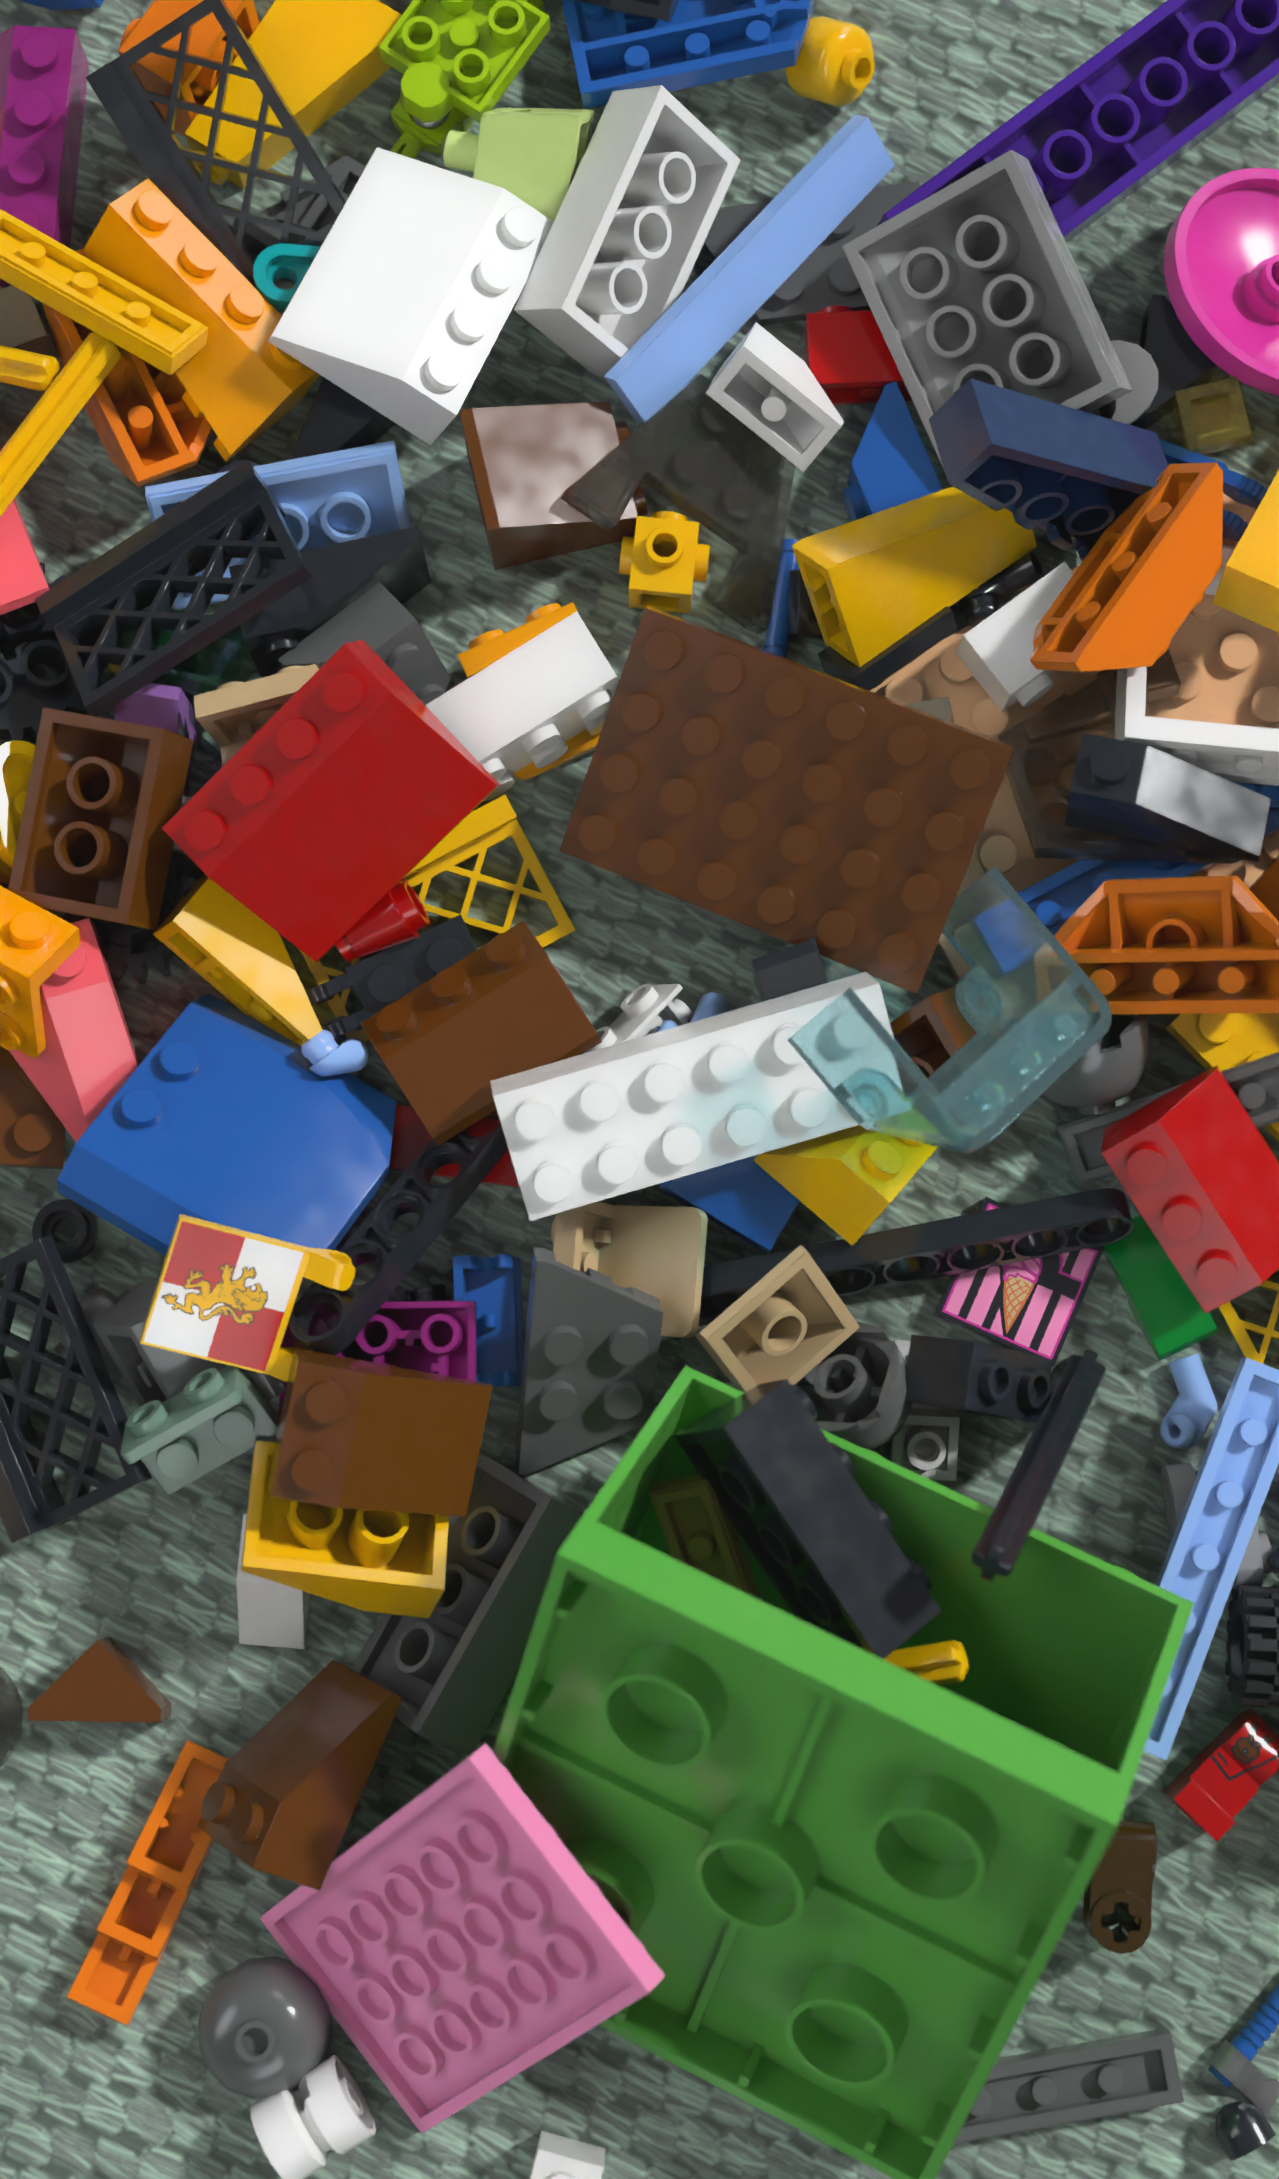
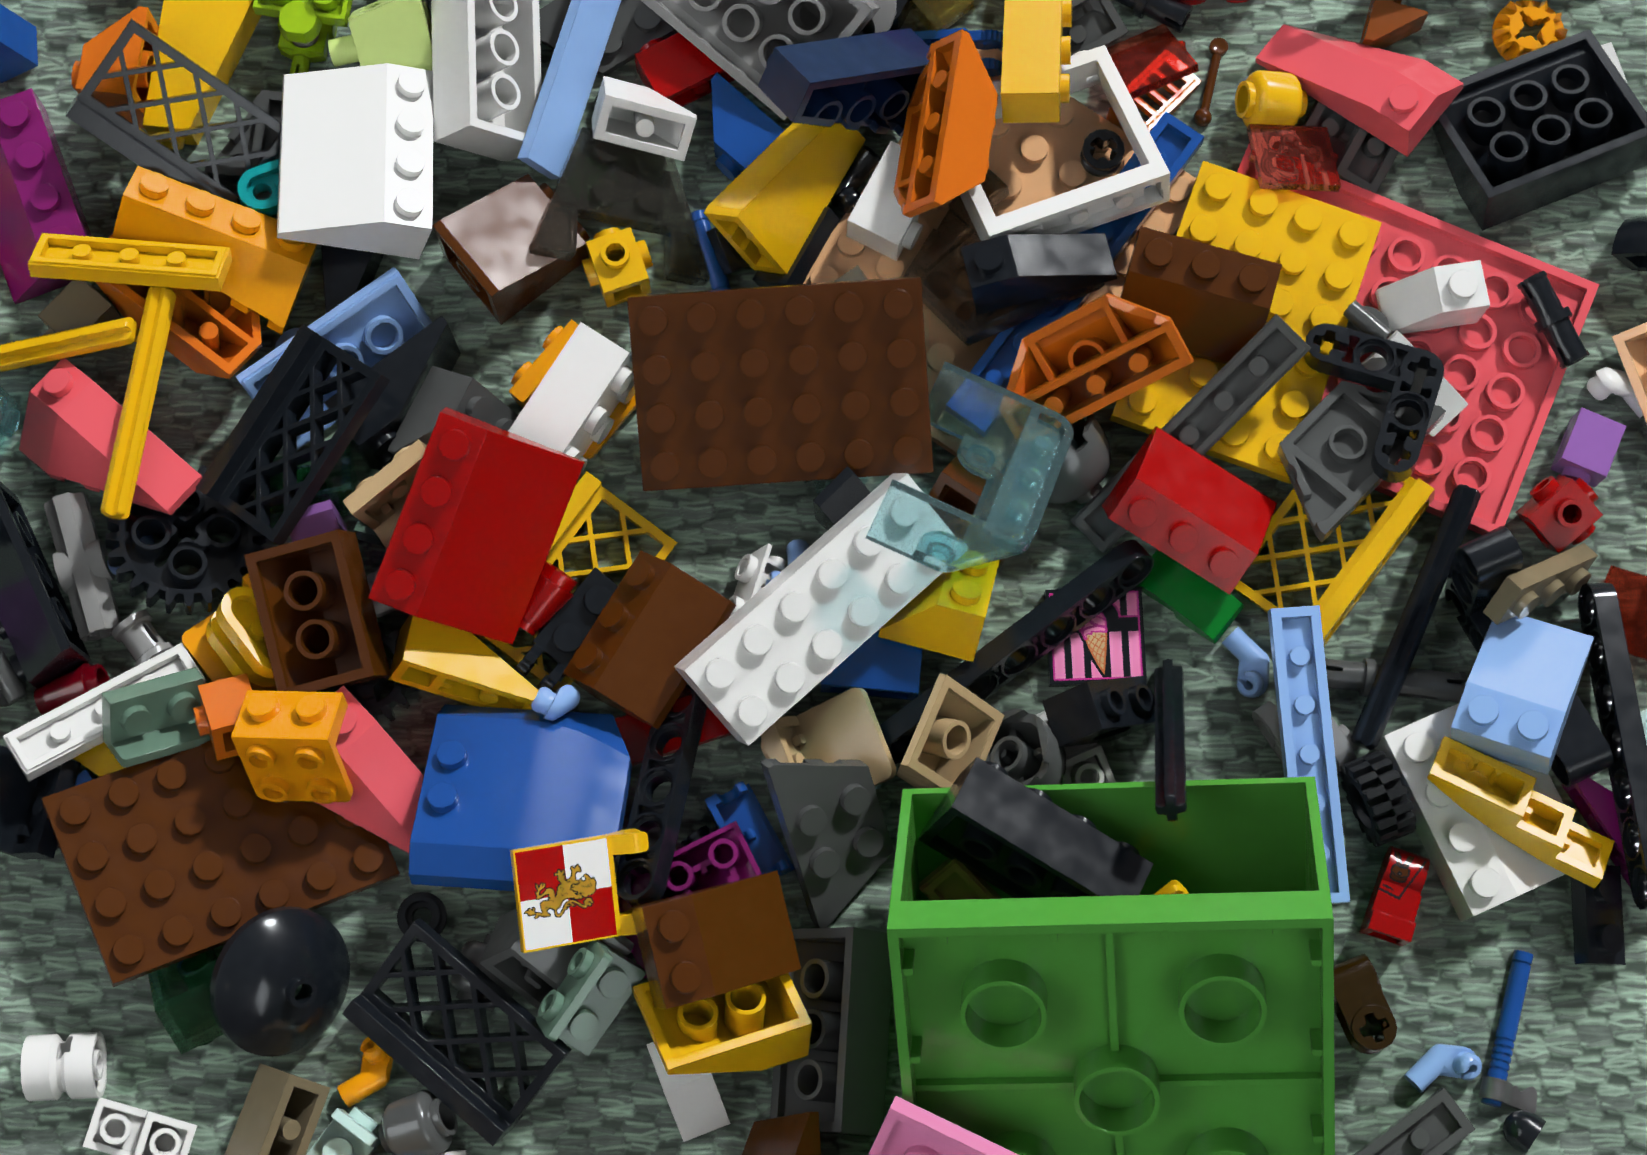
camera: 30 degrees left, 5 degrees down
(1187, 1998) = (1444, 1061): none -> light blue arm

